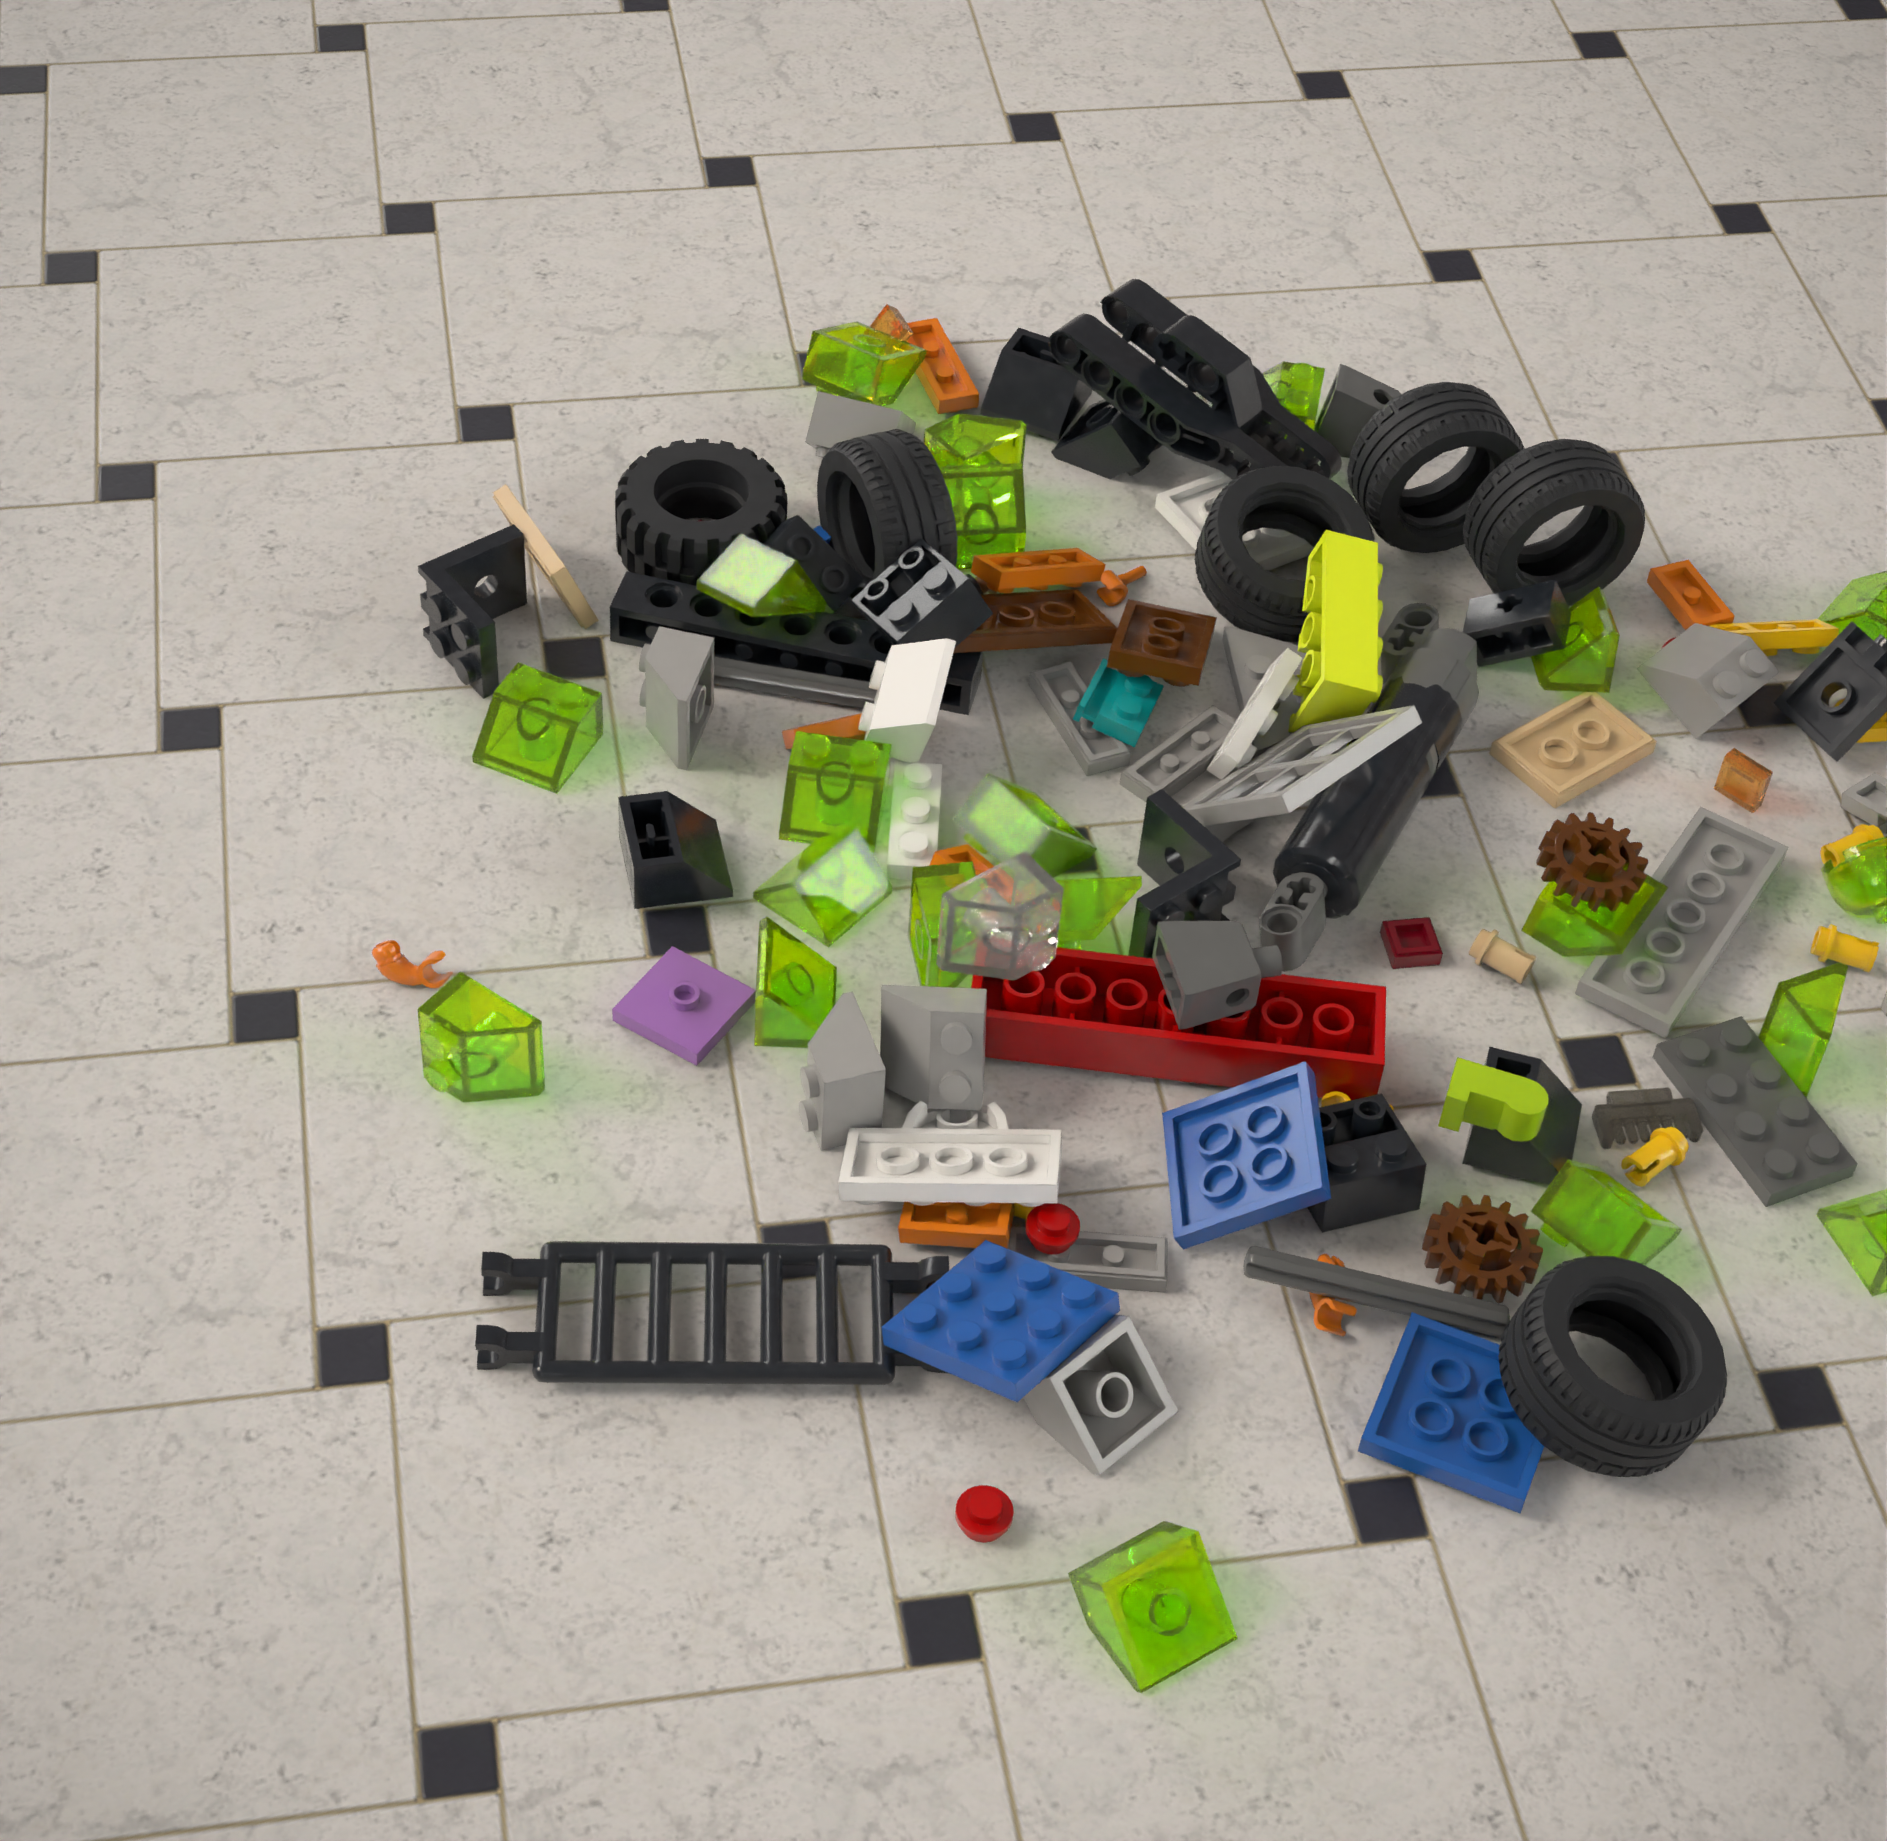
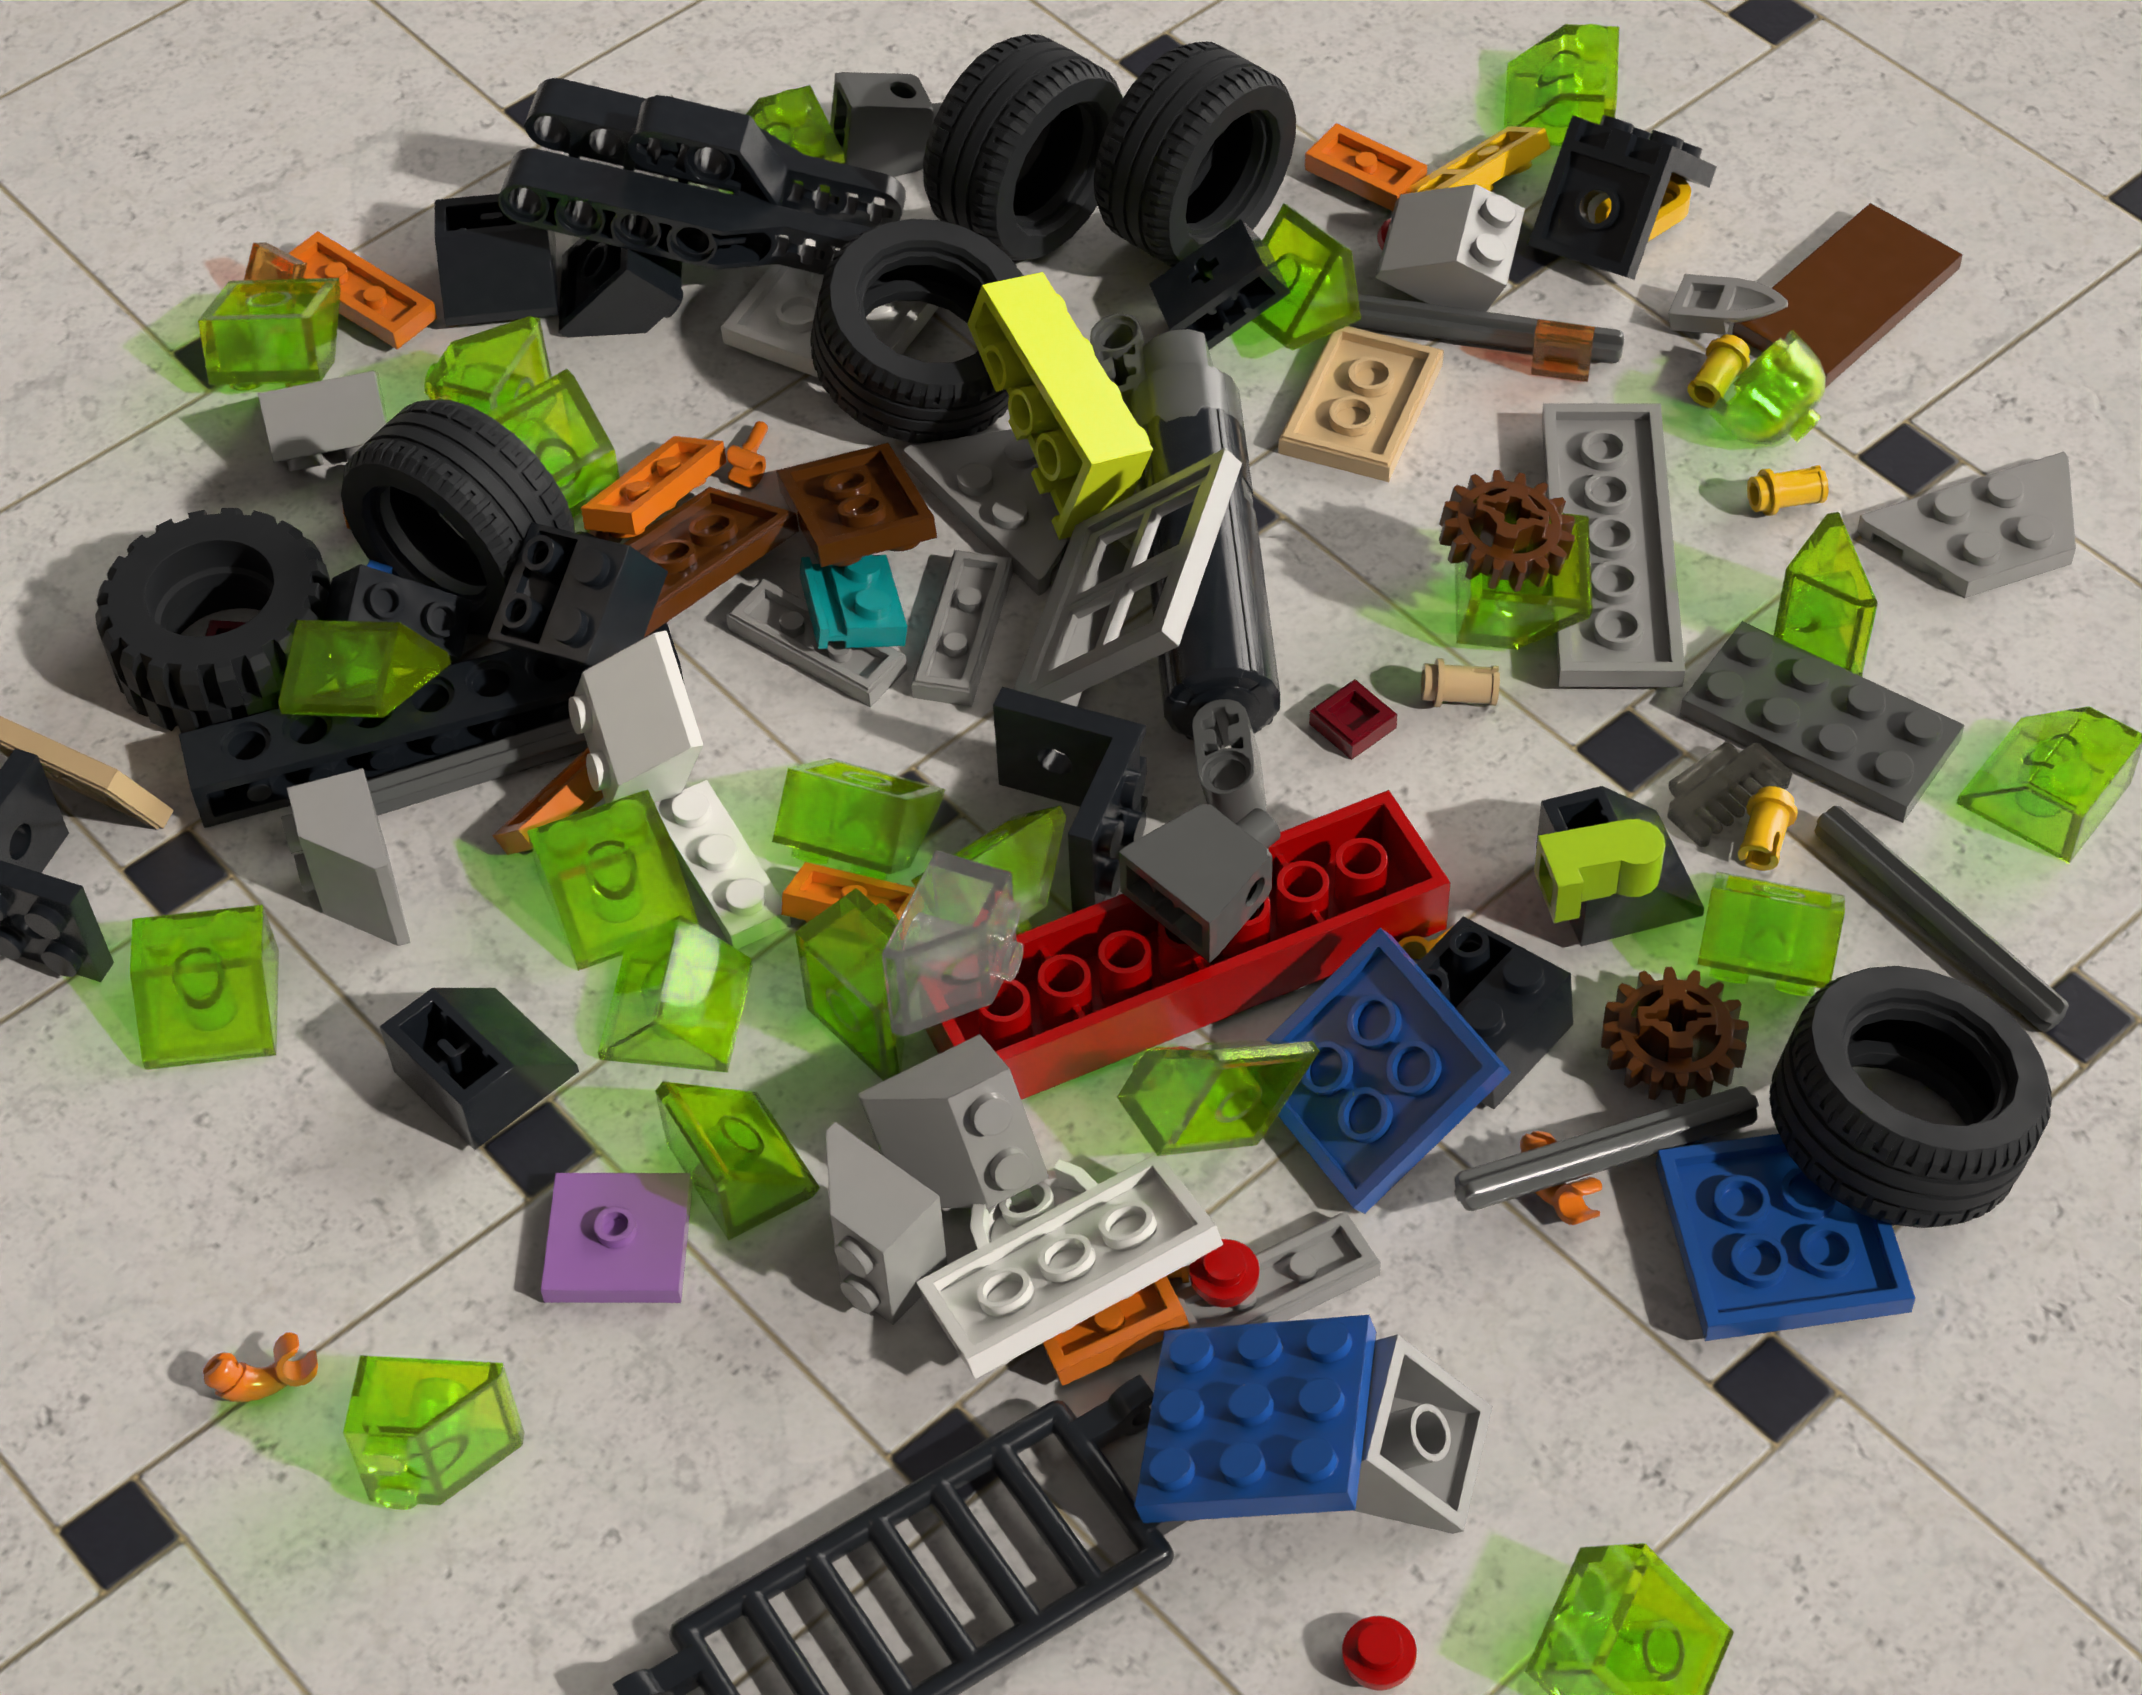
camera: 25 degrees left, 5 degrees up
(1123, 1112) = (1213, 1092): none -> clear neon green slope
(1256, 715) = (1020, 539): white plate -> none
(1688, 734) = (1469, 326): none -> dark grey axle
(1742, 1280) = (1942, 919): none -> dark grey axle

